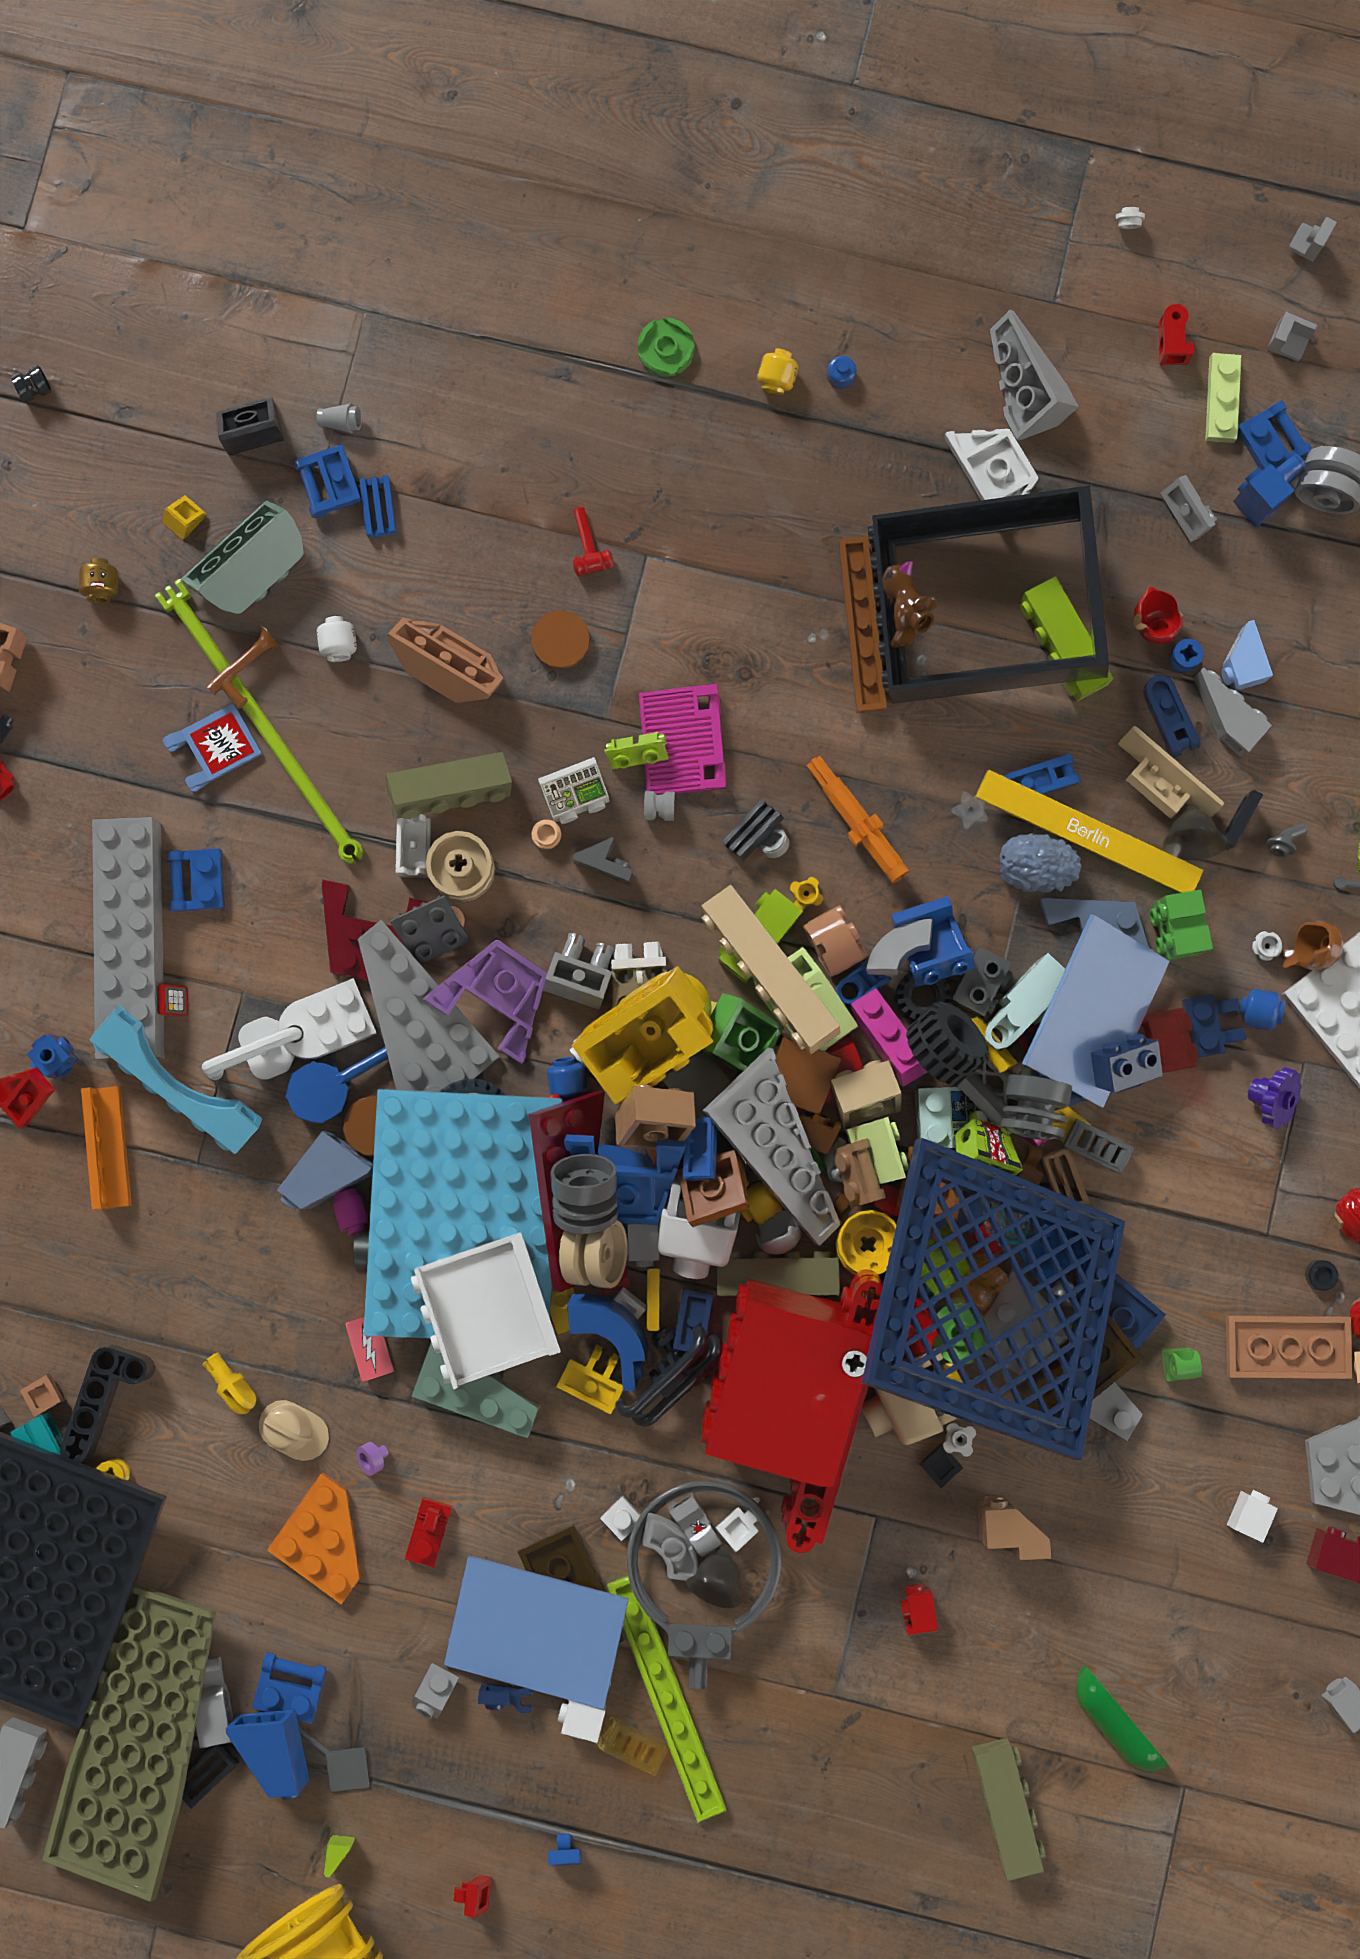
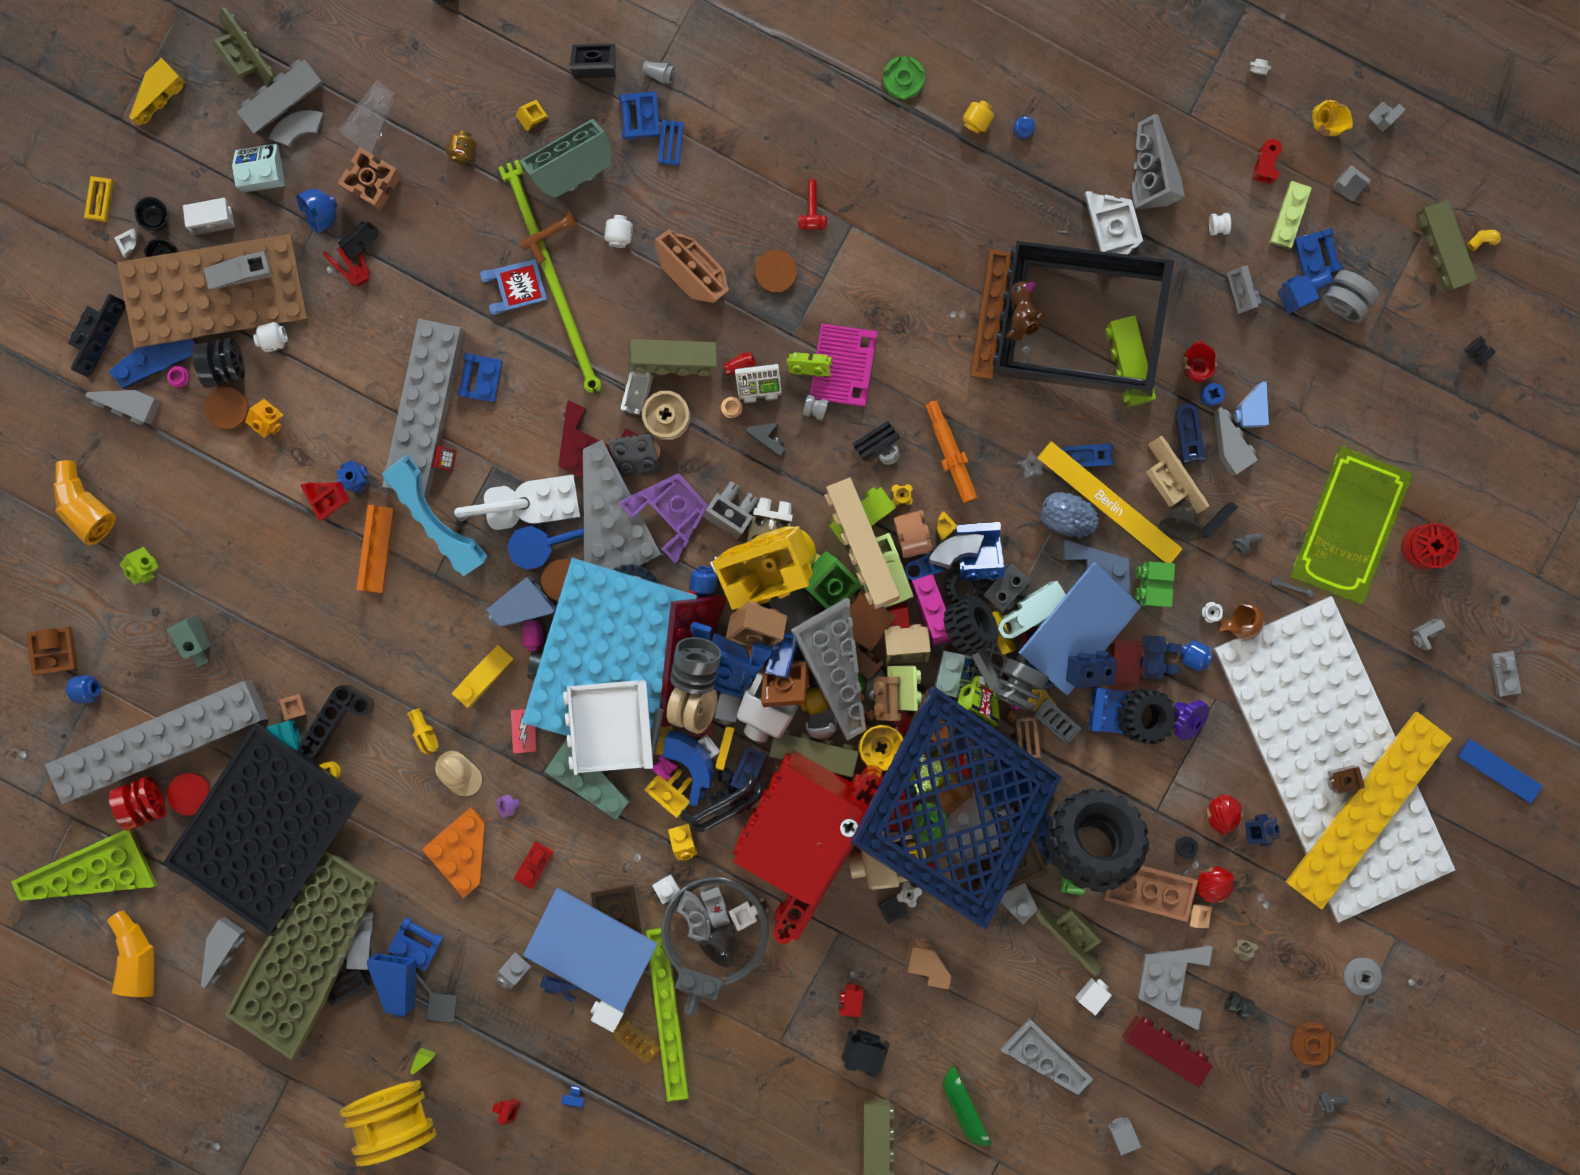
camera: 15 degrees right, 5 degrees up
(295, 1286) = (482, 676): none -> yellow slope
(544, 767) = (743, 360): none -> red cone
(551, 1298) = (655, 730): none -> dark grey piece
(577, 1348) = (664, 767): none -> dark pink wheel
(627, 1447) = (682, 842): none -> yellow bracket
(875, 921) = (945, 526): none -> yellow tile
(956, 1679) = (864, 1052): none -> black brick
(1134, 431) = (1220, 224): none -> white wheel
(1168, 1113) = (1104, 709): none -> blue bracket
(1201, 1616) = (1037, 1050): none -> light grey wing
(1202, 1435) = (1074, 934): none -> olive bracket
(1219, 1263) = (1116, 821): none -> black tyre
(1239, 1104) = (1161, 721): none -> black tyre
(1242, 259) = (1332, 118): none -> yellow hair

